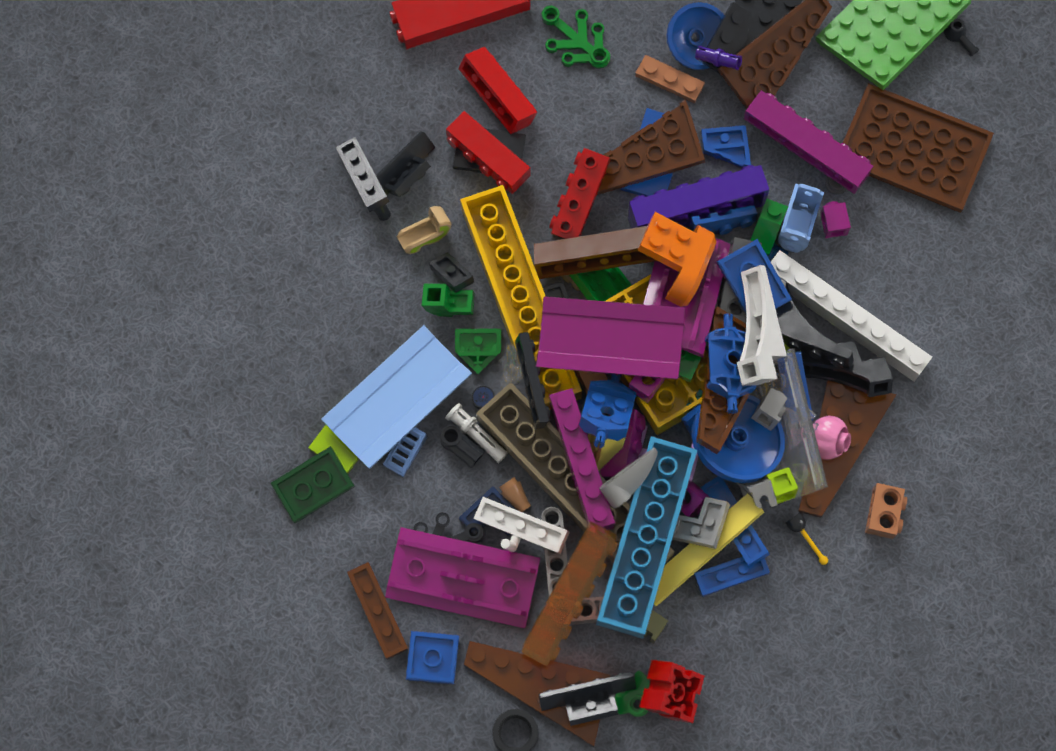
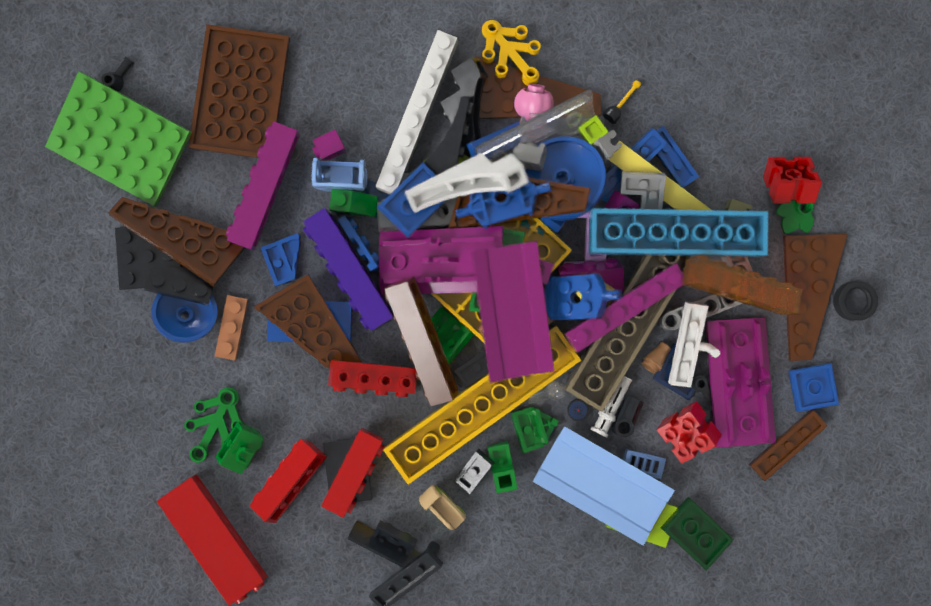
camera: 110 degrees left, 15 degrees up
(426, 500) = (689, 432): none -> red brick
(534, 390) = (571, 365): black plate -> none
(545, 53) = (239, 448): none -> green brick
(589, 700) = (820, 245): black bracket -> none
(627, 481) = (644, 266): light grey piece -> none
(680, 250) = (412, 271): orange piece -> none
(718, 57) = (204, 287): dark purple pin -> none
(879, 509) = (583, 47): nougat brick -> none
(895, 429) = (509, 48): none -> yellow plant

